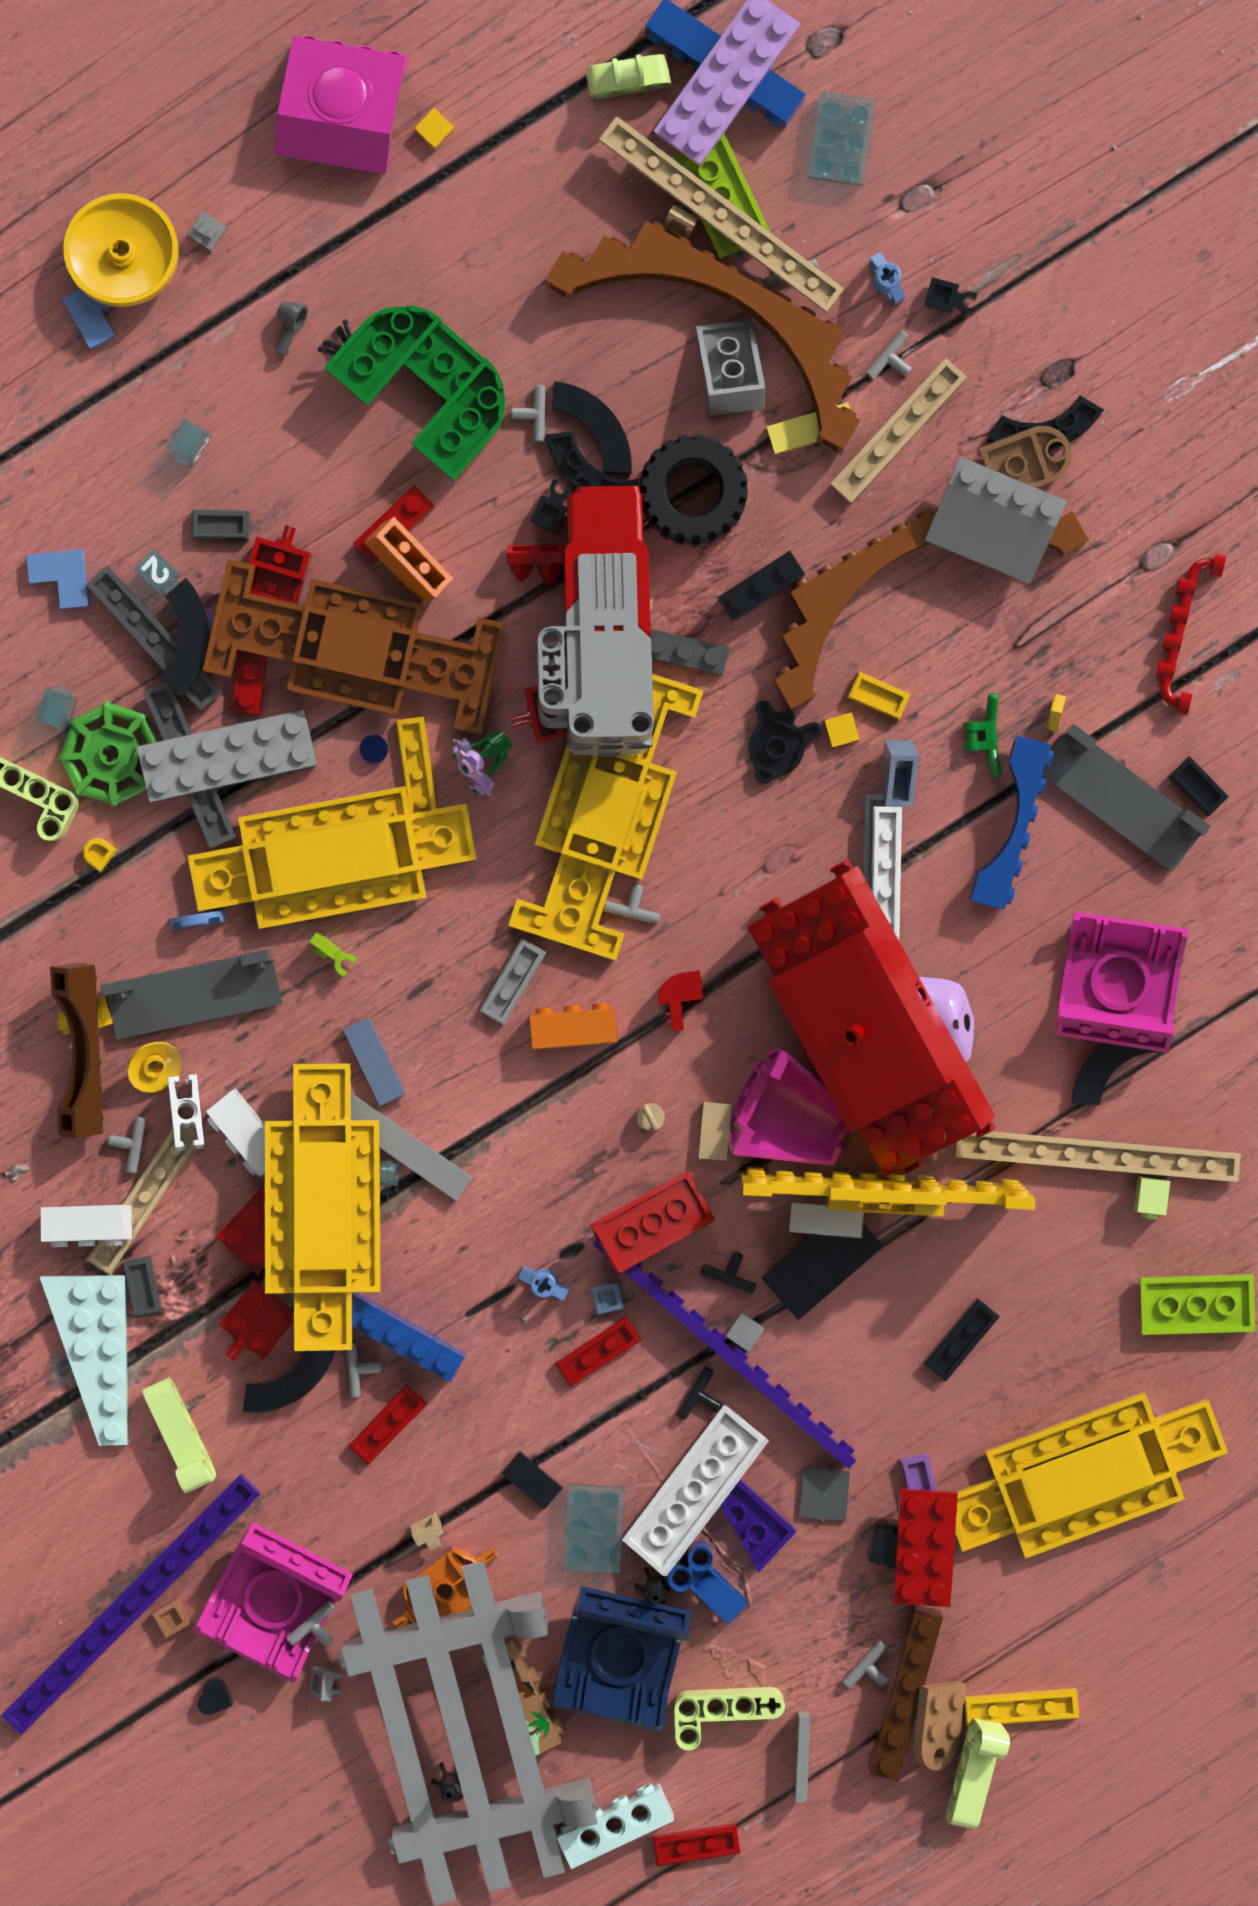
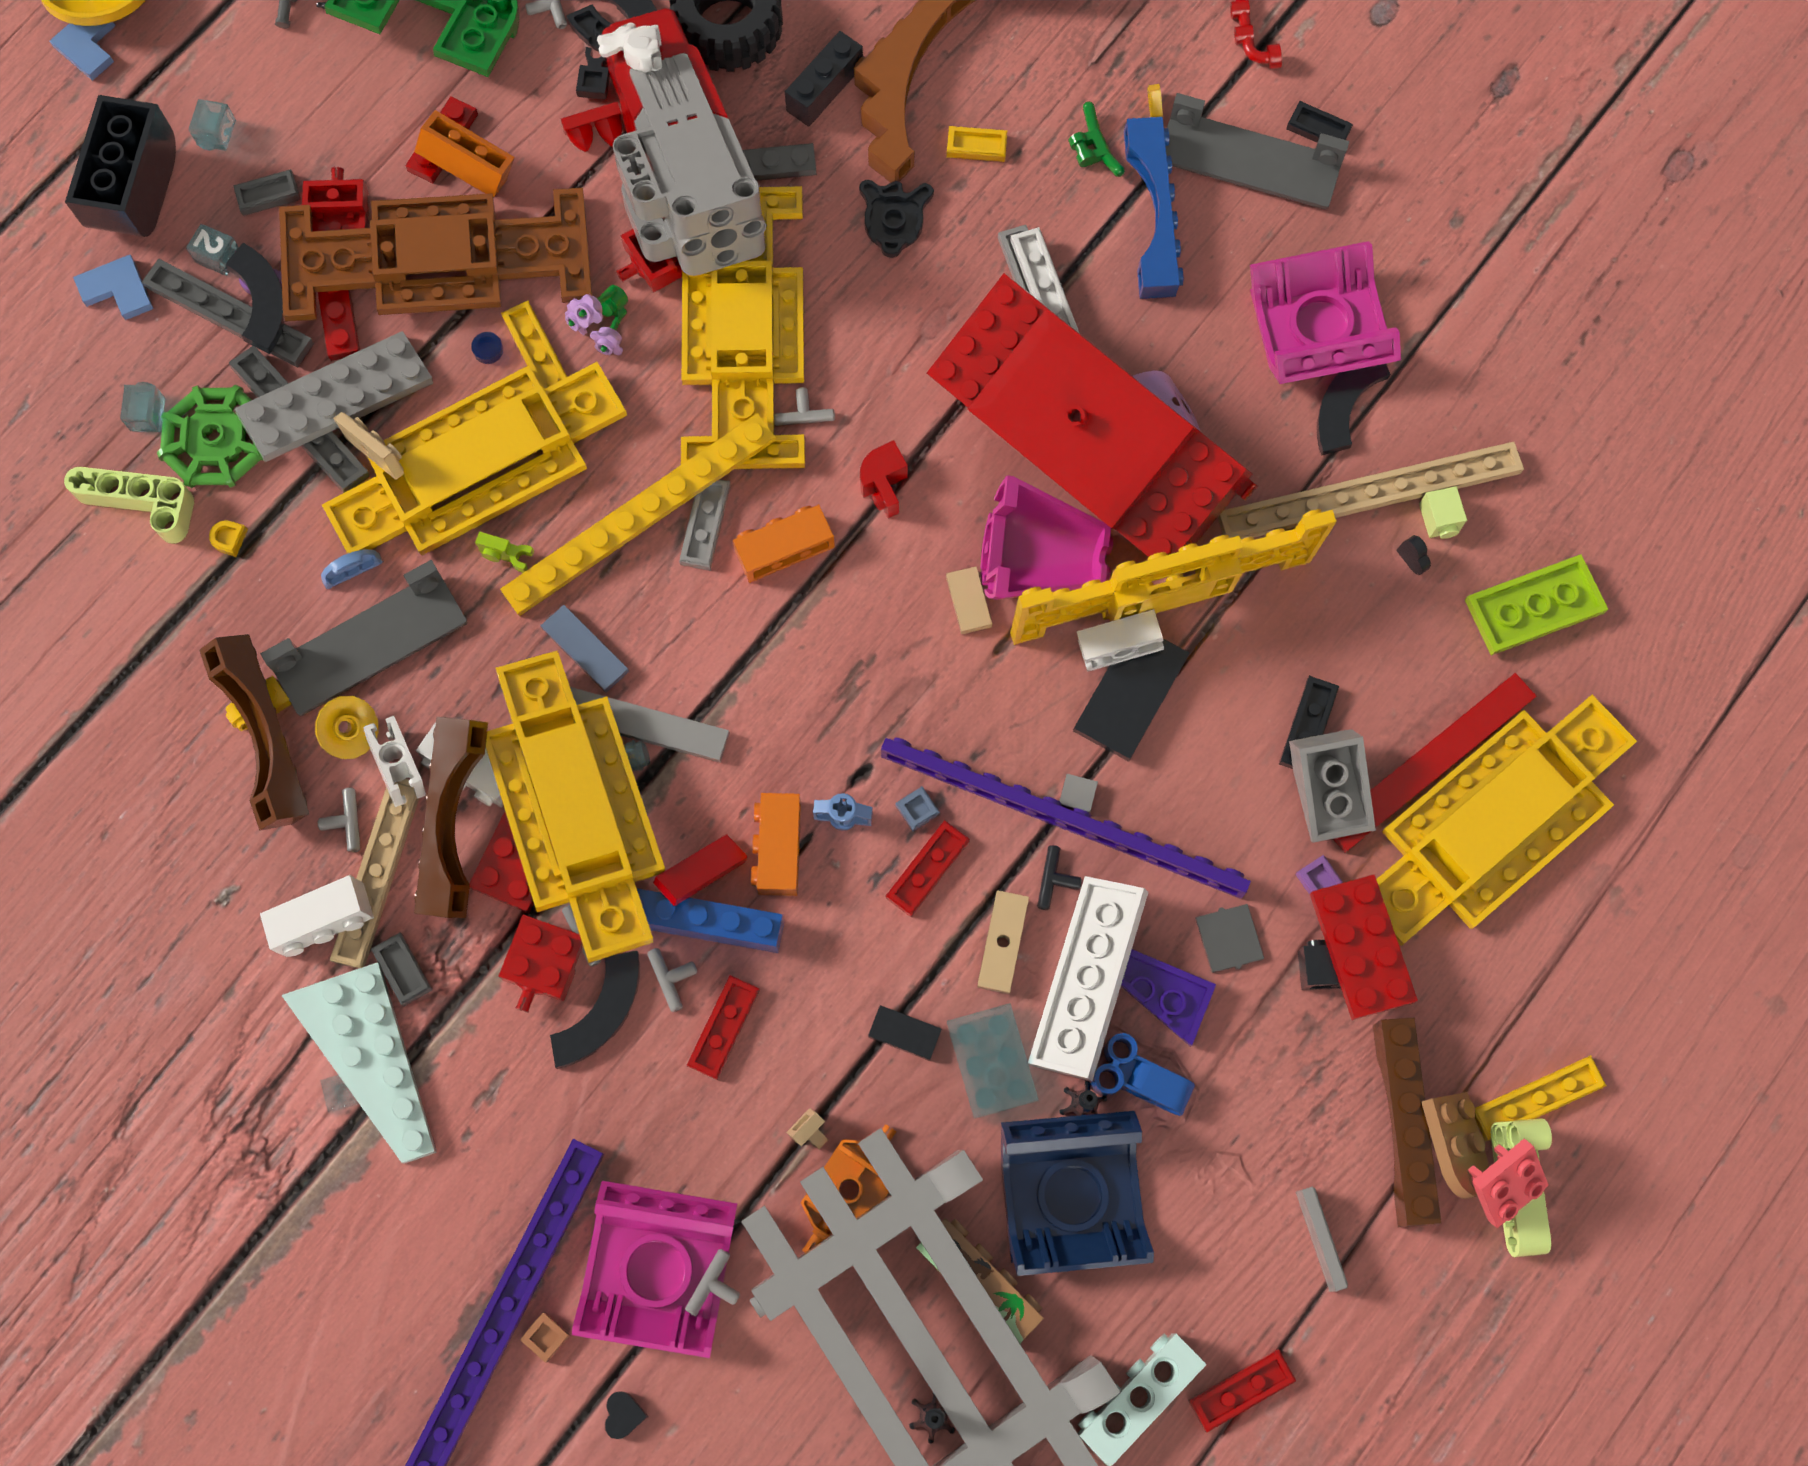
camera: 20 degrees left, 15 degrees down
(98, 477) = (123, 167): none -> black brick
(180, 1435) = (490, 1116): yellowish green beam -> none
(196, 1229) = (441, 881): none -> reddish brown arch
(245, 821) = (370, 444): none -> tan tile
(322, 1682) = (743, 1350): light grey tile -> none
(409, 1295) = (700, 870): none -> red tile
(458, 958) = (638, 514): none -> yellow plate
(480, 1291) = (777, 844): none -> orange brick
(595, 533) = (638, 43): none -> white animal
(629, 1450) = (1006, 923): none -> tan tile
(650, 1117) = (896, 608): tan tile -> none
(652, 1222) = (936, 706): red plate -> none
(728, 1712) = (1218, 1214): yellowish green beam -> none
(729, 1276) = (1039, 742): black piece -> none
(841, 730) = (952, 184): yellow tile -> none
(866, 1666) = (1351, 1112): light grey piece -> none
(899, 772) = (1025, 198): sand blue slope -> none
(957, 1402) = (1333, 784): none -> light grey slope
(959, 1775) = (1509, 1182): none -> coral plate
(1050, 1406) = (1444, 752): none -> red tile
(1112, 1225) = (1415, 554): none -> black tile

